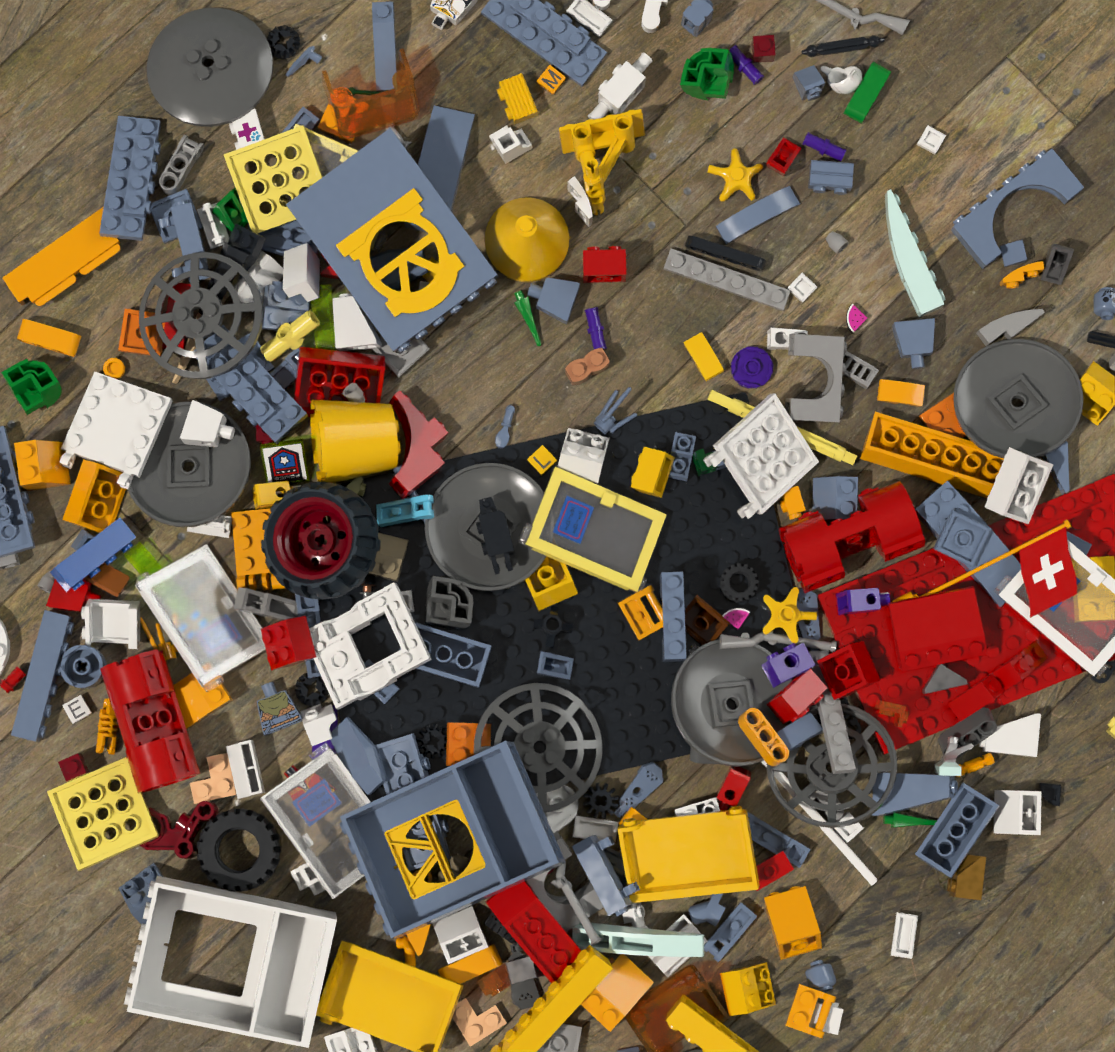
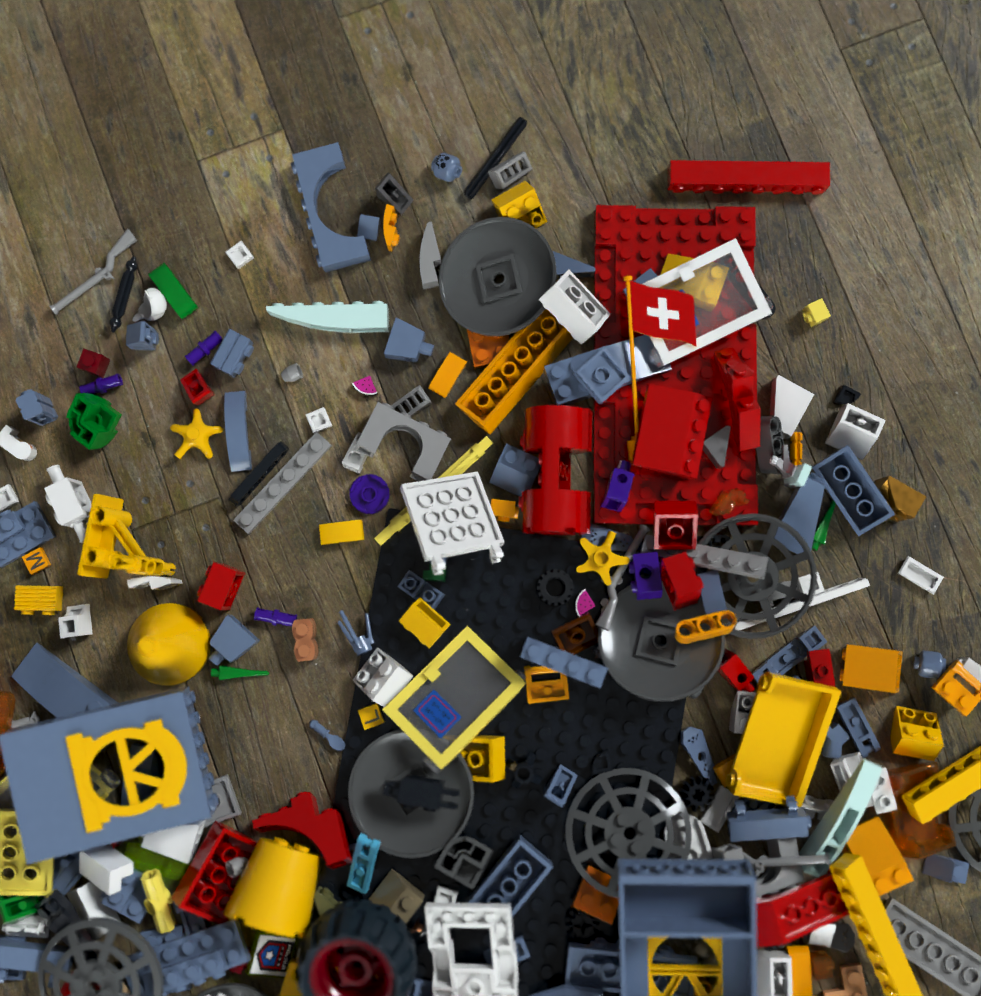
camera: 65 degrees left, 0 degrees up
(679, 973) = (883, 794): none -> white hinge

